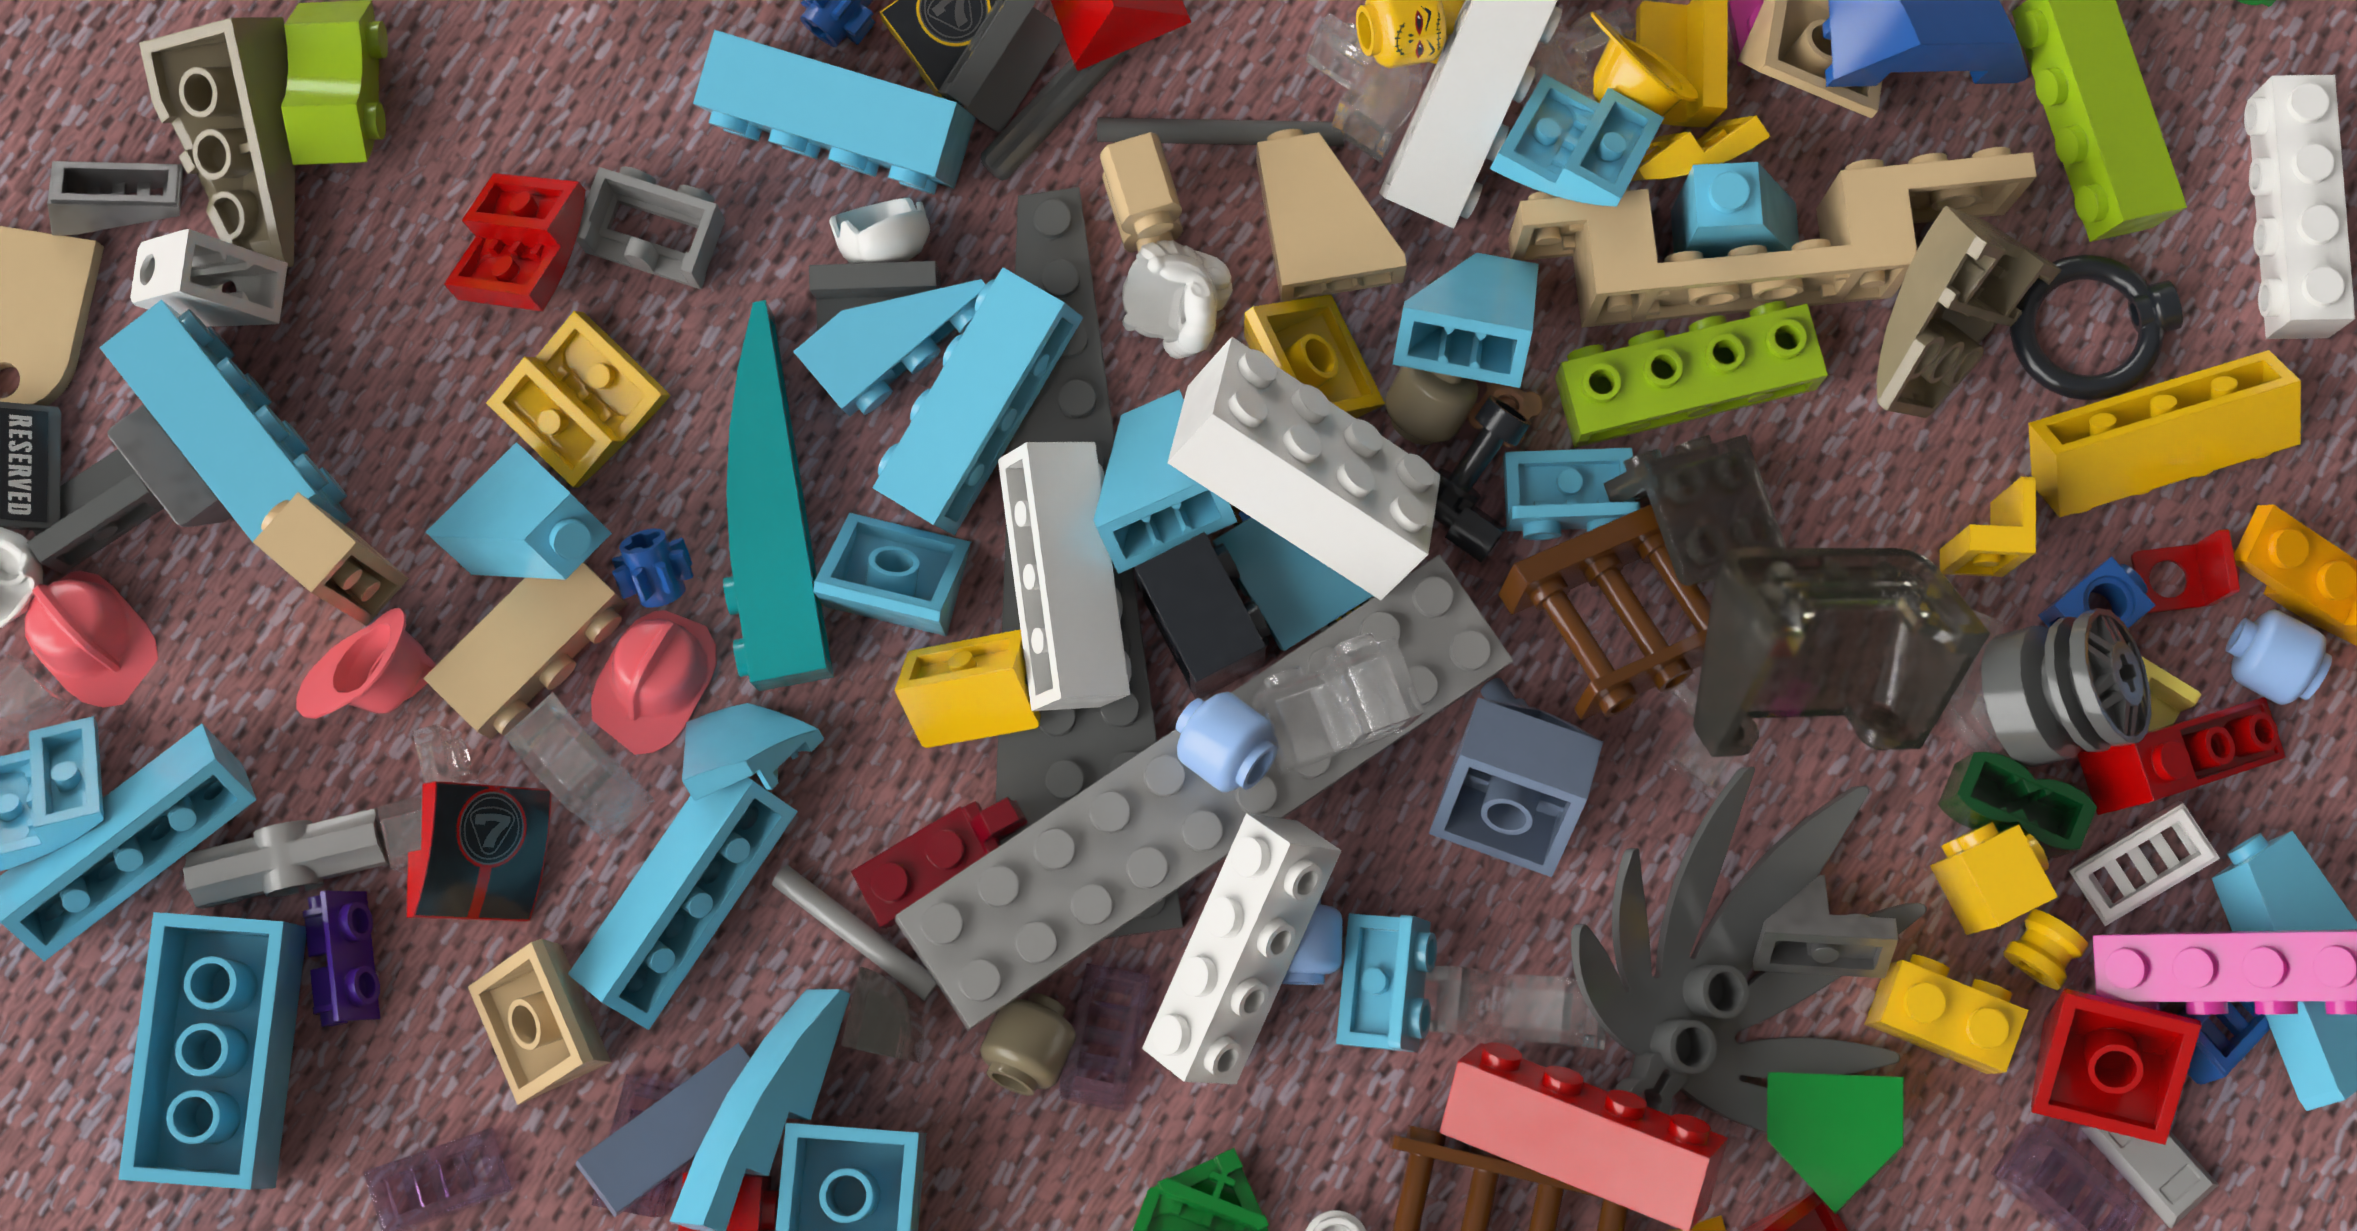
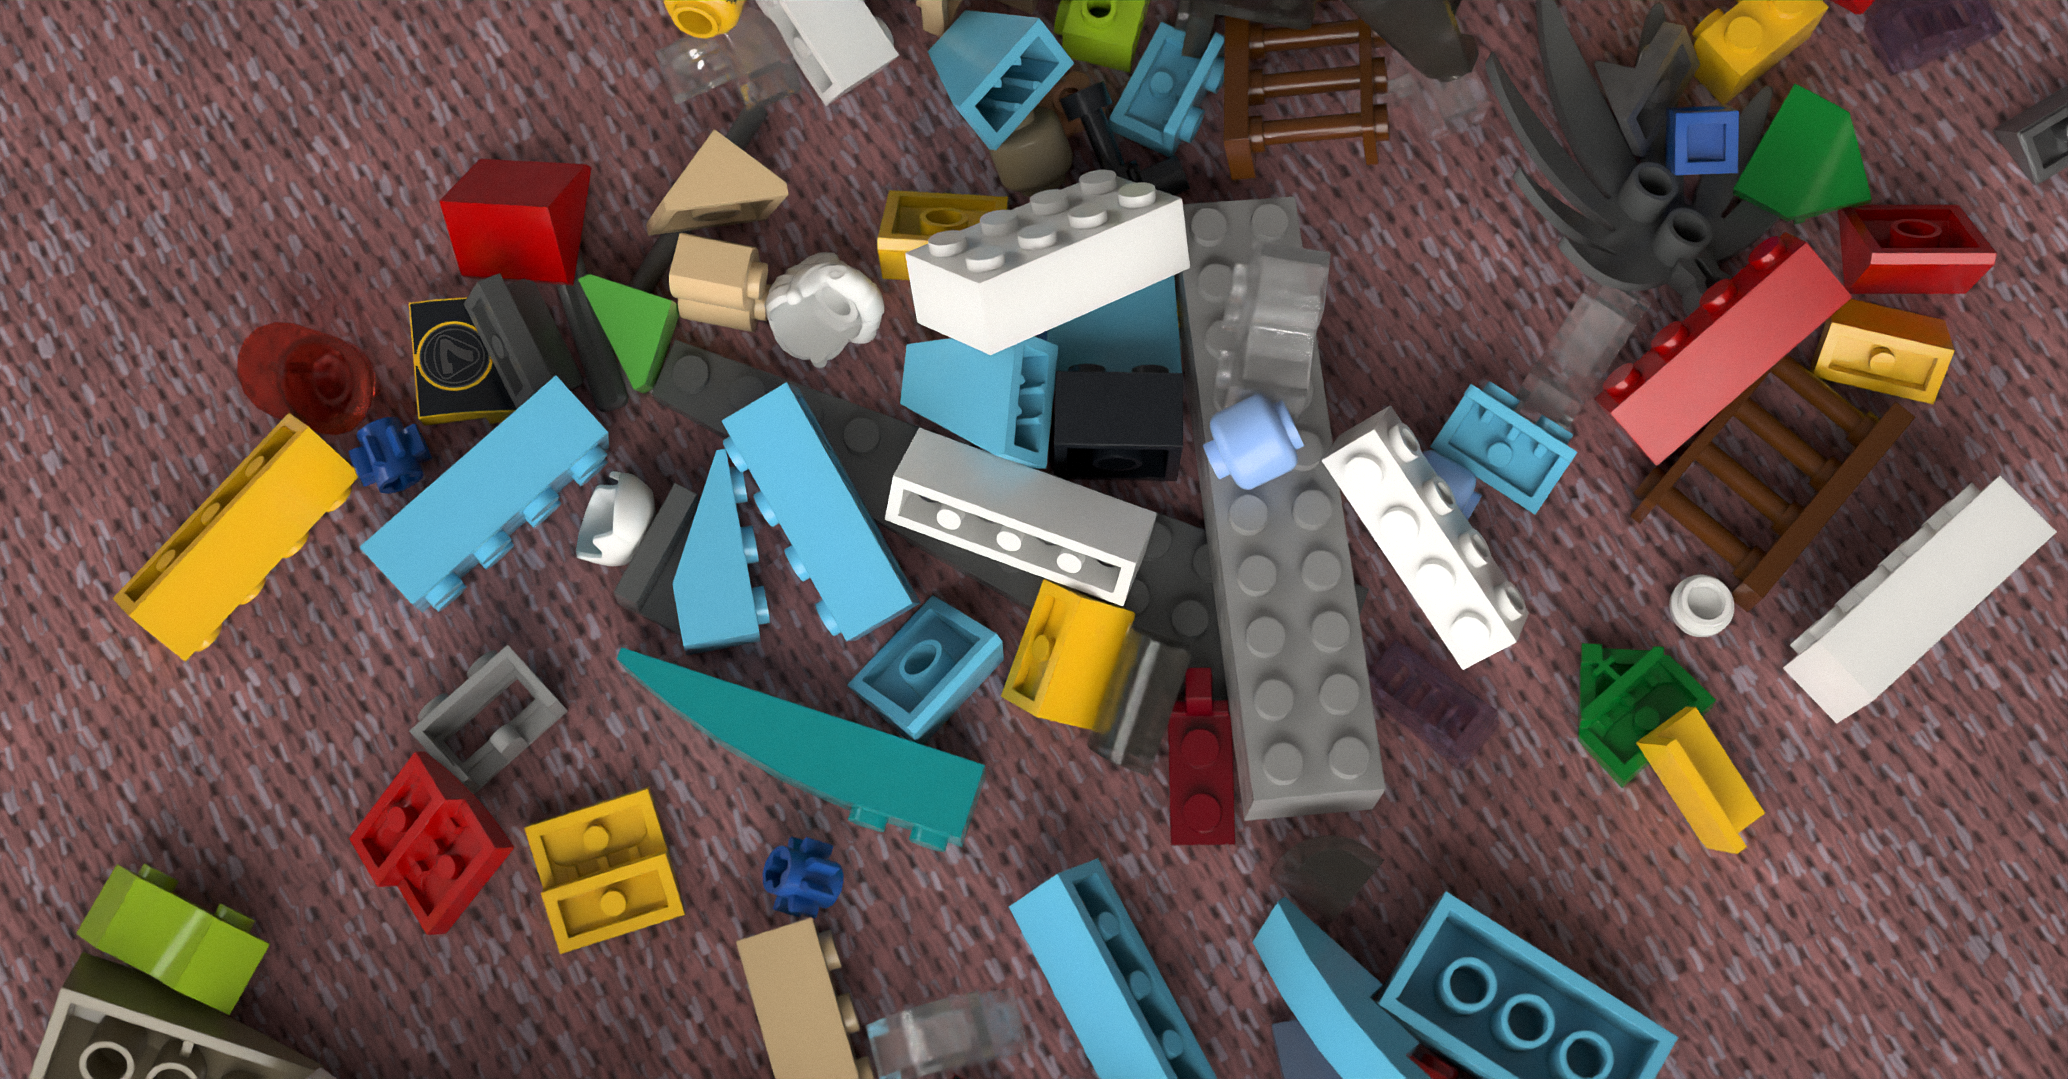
camera: 65 degrees left, 5 degrees down
(518, 523) = (698, 969): medium azure slope -> none
(654, 681) = (901, 936): coral piece -> none
(738, 744) = (1013, 876): medium azure slope -> none
(855, 932) = (1221, 873): light grey bar -> none
(960, 771) = (1139, 699): none -> clear smoke brick
(1028, 1044) = (1413, 769): dark tan head -> none
(1064, 143) = (636, 326): none -> bright green slope
(1222, 136) = (718, 190): none -> tan slope
(1320, 222) = (832, 158): tan slope -> none
(1516, 782) = (1399, 249): sand blue piece -> none
(1792, 1015) = (1702, 140): none -> blue brick

